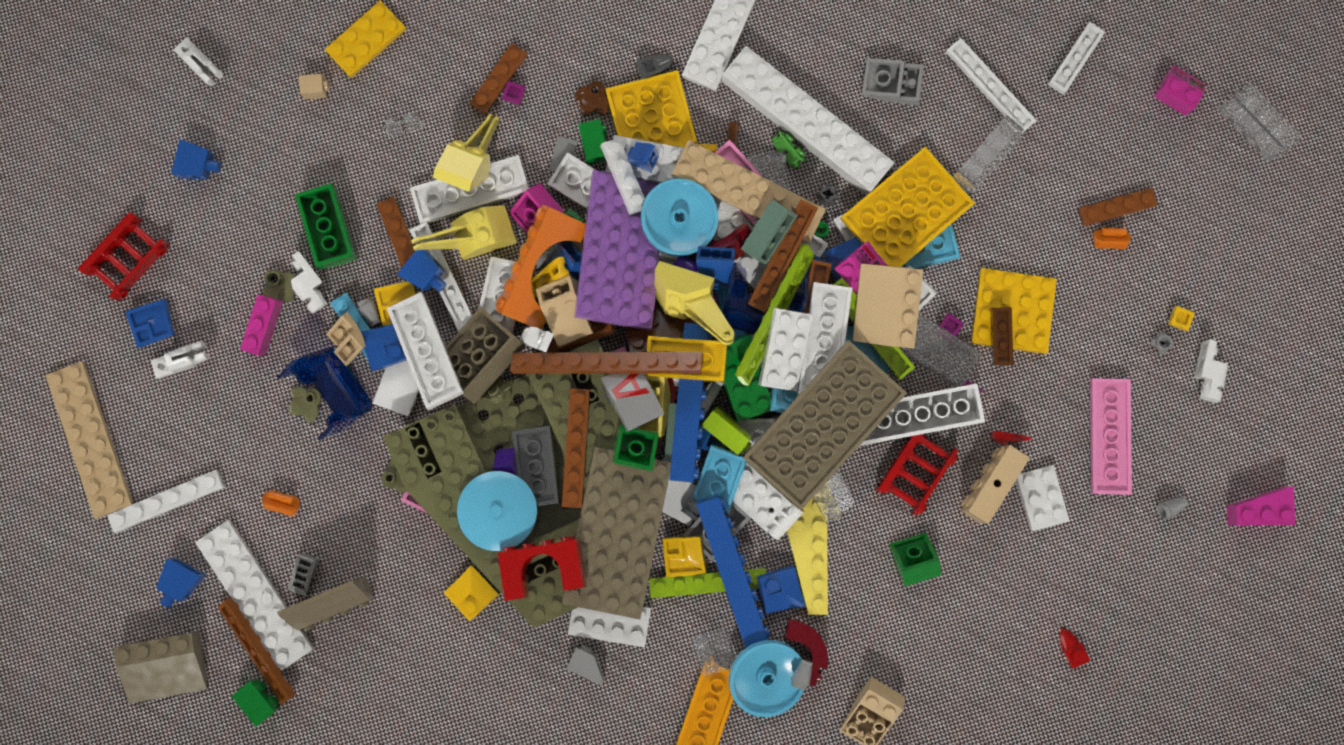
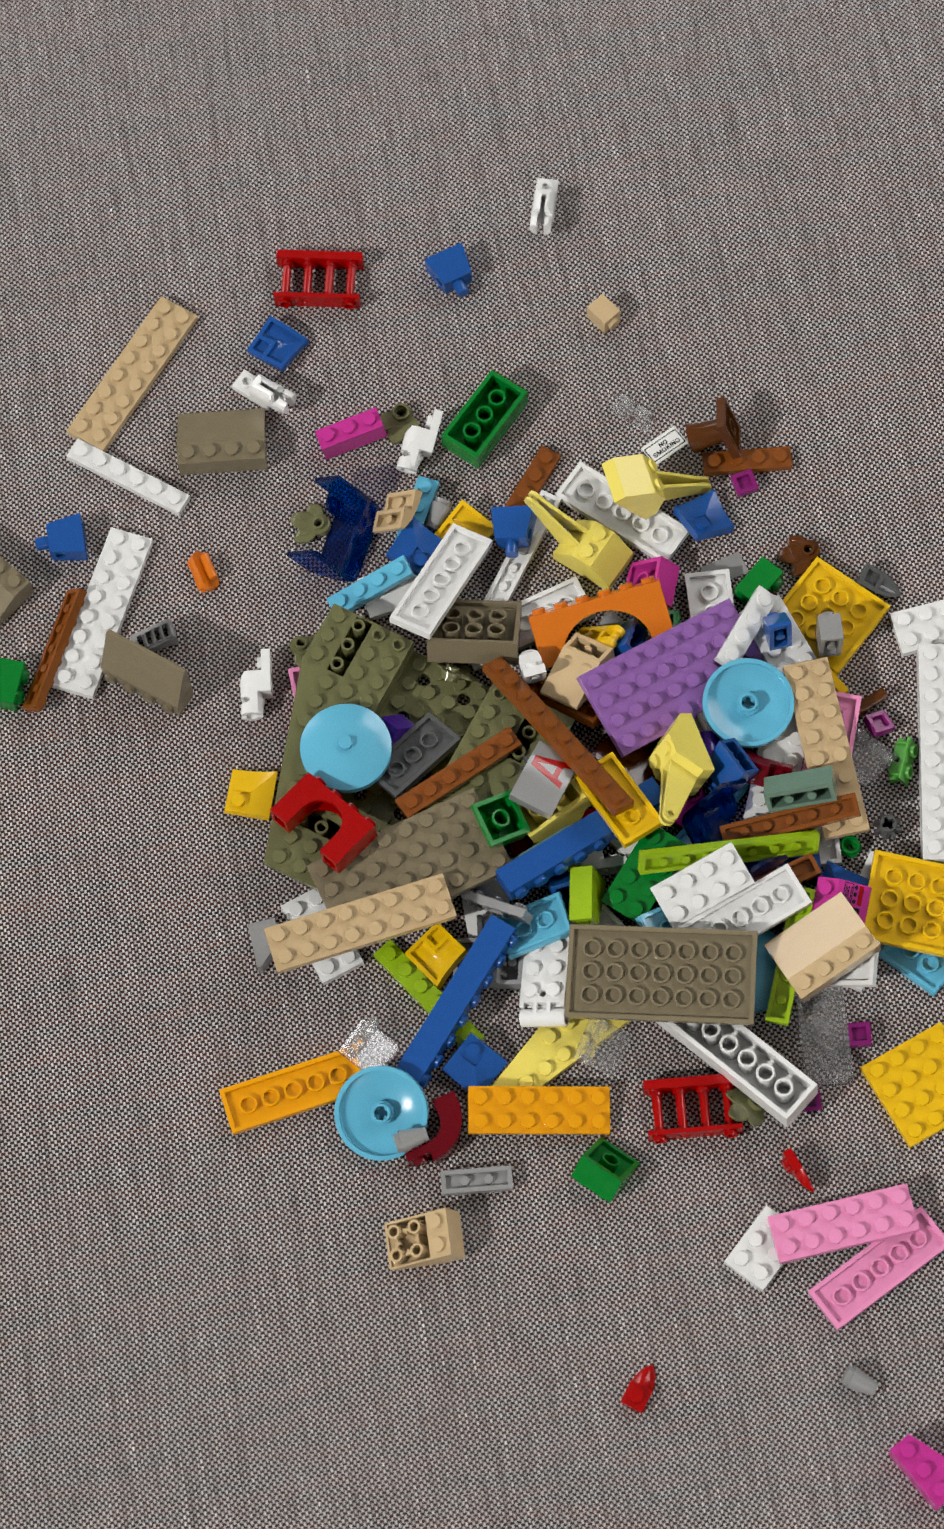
camera: 60 degrees right, 15 degrees down
(192, 416) = (222, 441): none -> dark tan slope
(365, 39) = (685, 324): yellow plate -> none
(387, 398) = (373, 585): none -> medium azure plate
(397, 530) = (256, 687): none -> white plate
(442, 123) = (665, 445): none -> white sticker
(464, 81) = (722, 429): none -> reddish brown plant
(517, 138) = (704, 517): none -> blue plate
(633, 600) = (360, 923): none -> tan plate
(671, 125) = (829, 634): none -> light grey brick
(689, 492) = (498, 906): none -> light grey plate
(752, 143) = (879, 723): none -> magenta plate
(843, 572) = (539, 1110): none -> light orange plate
(858, 649) = (476, 1180): none -> light grey plate
(945, 439) = (745, 1108): none -> olive plate
(994, 484) = (737, 1184): tan brick -> none
(1002, 336) = (887, 1085): reddish brown plate -> none
(1068, 437) = (843, 1223): none -> bright pink plate

